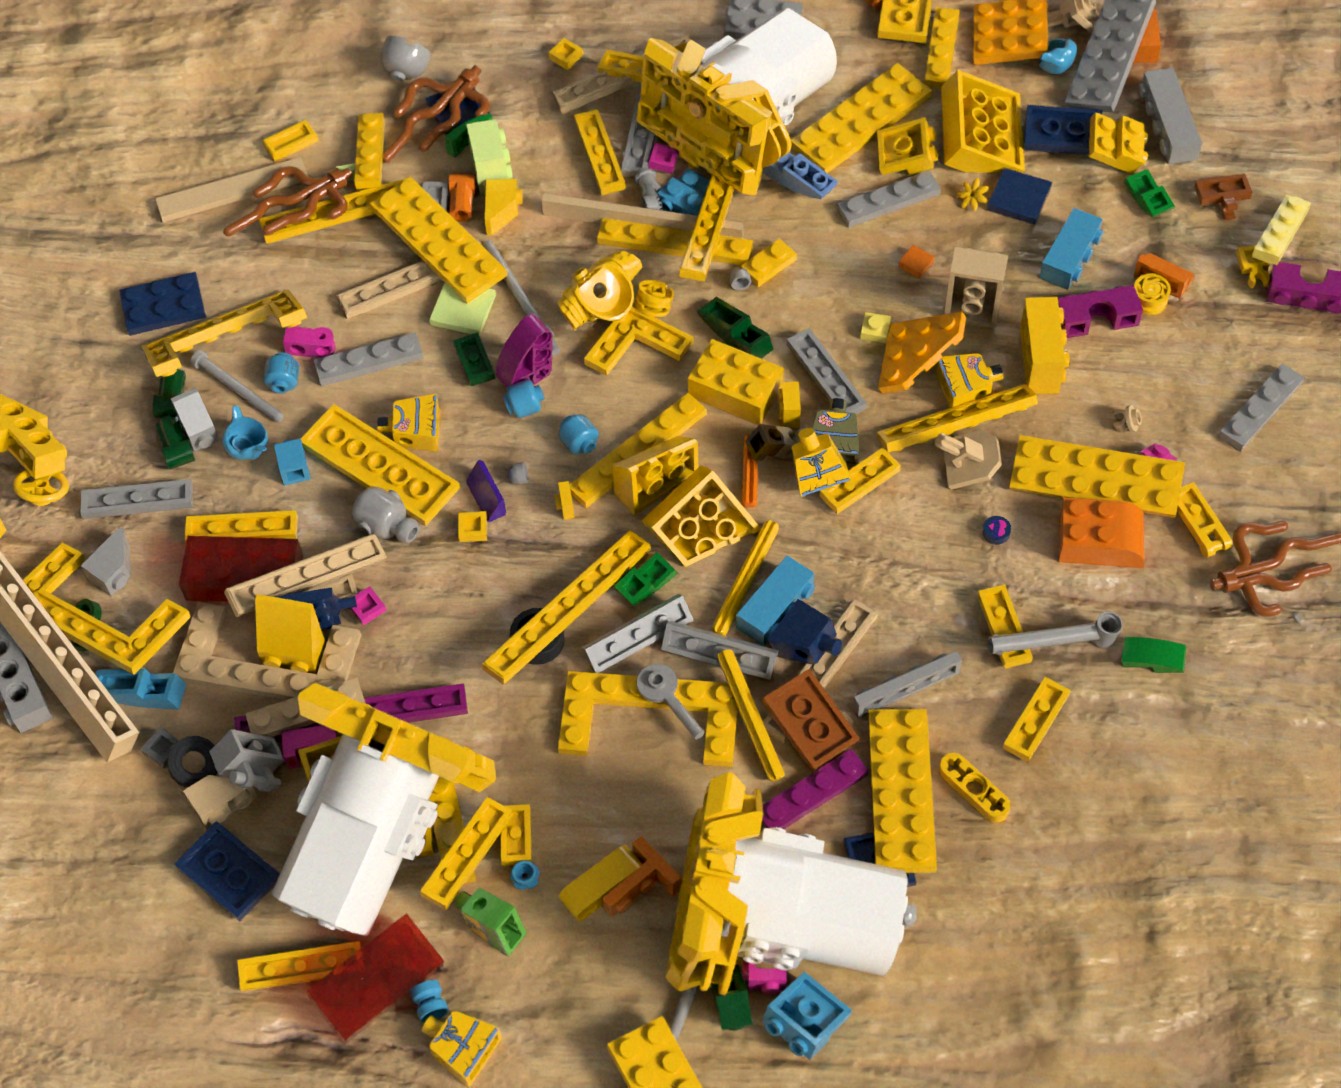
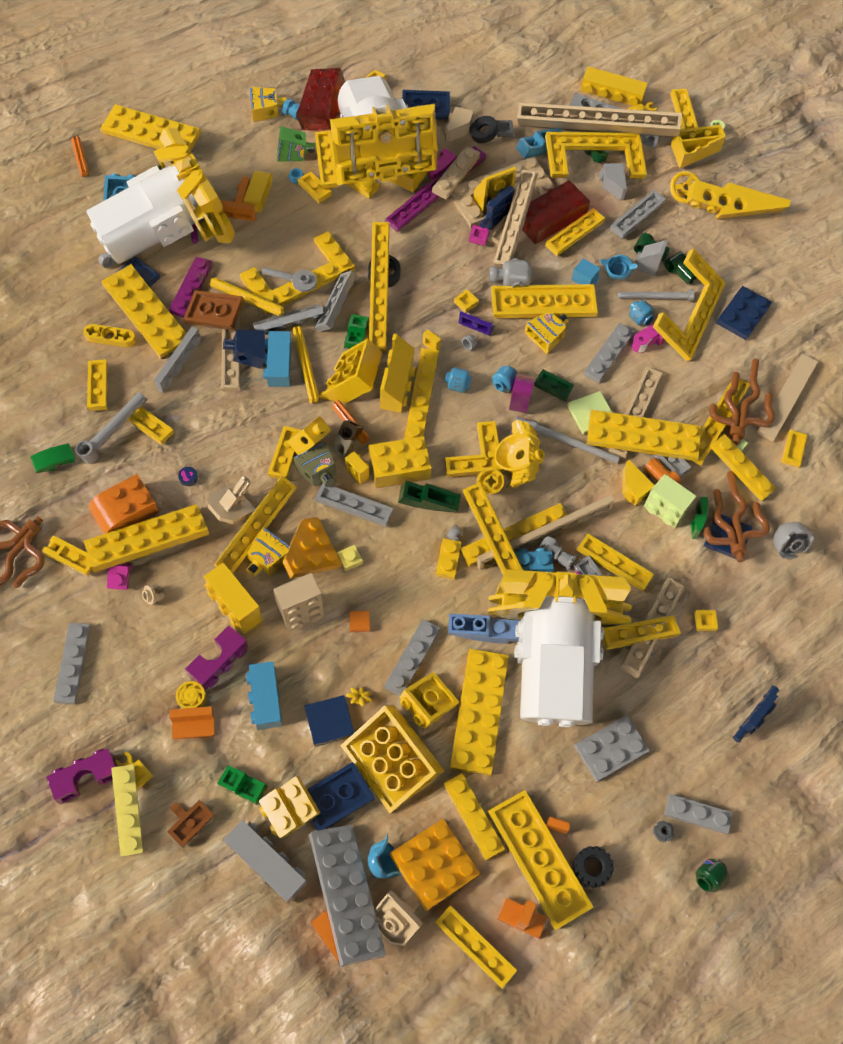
camera: 135 degrees right, 5 degrees up
(248, 760) = (459, 133): light grey brick -> none

